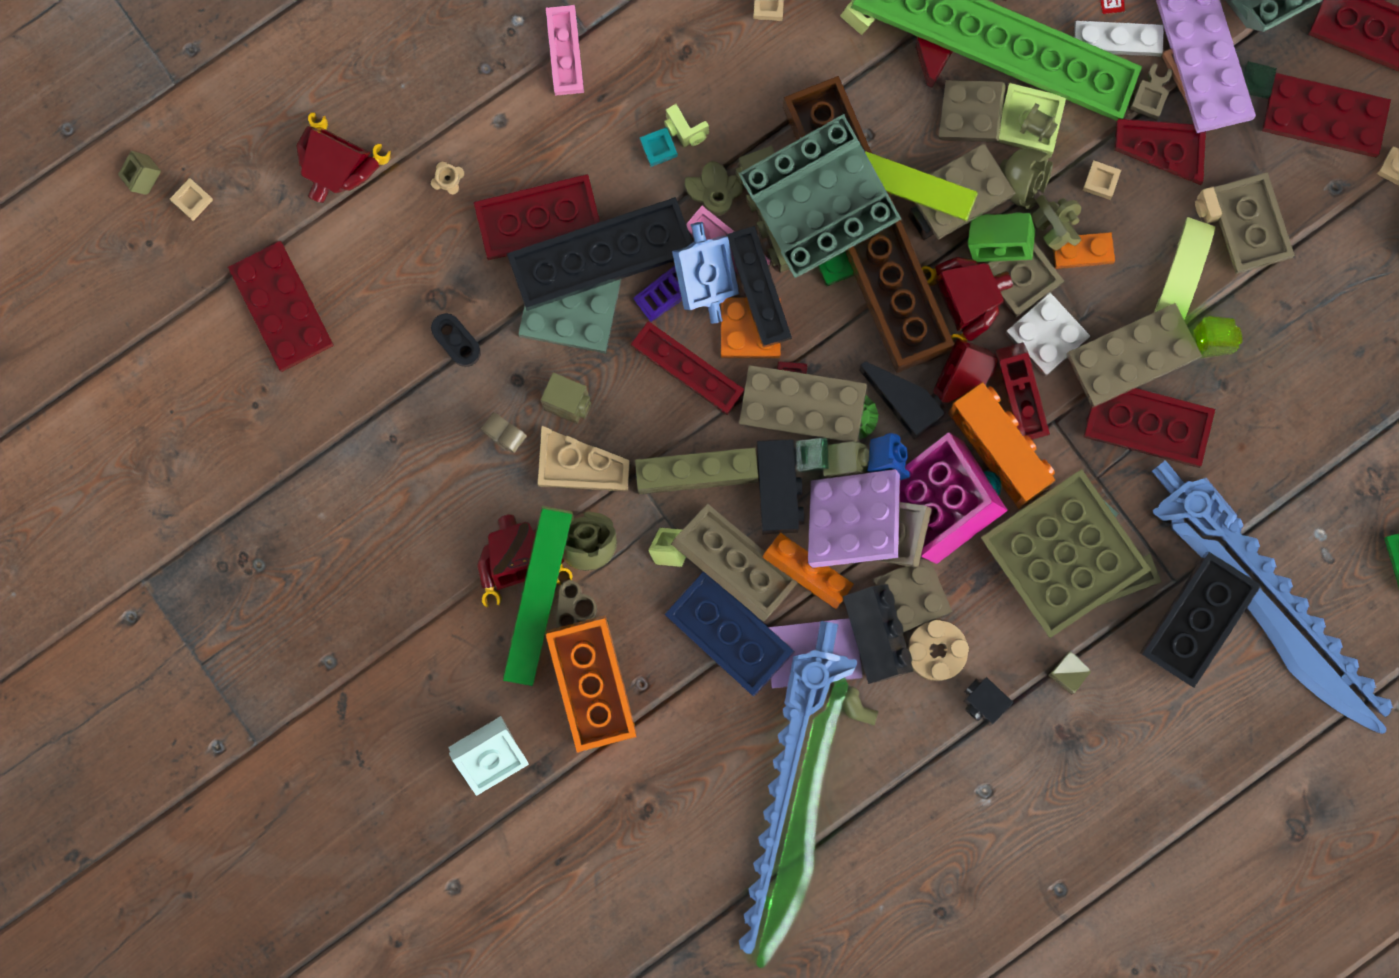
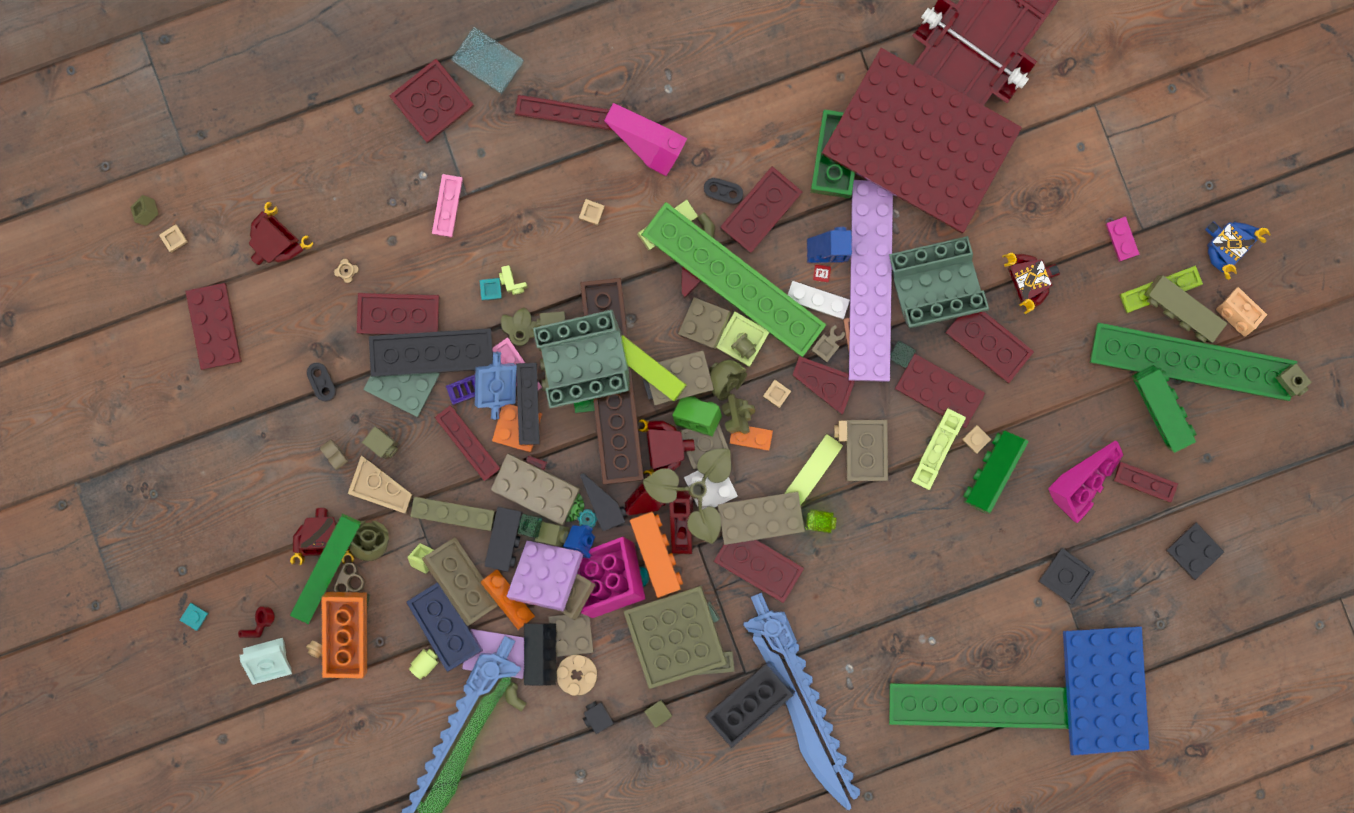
camera: 15 degrees right, 5 degrees up
(365, 722) = (194, 616): none -> teal plate
(466, 694) = (264, 618): none -> dark red plate
(554, 718) = (315, 649): none -> tan plate
(715, 694) = (424, 663): none -> yellowish green brick
(888, 419) = (587, 513): none -> teal plate
(1050, 302) = (663, 488): none -> olive plant
(1349, 192) = (938, 449): none -> yellowish green slope

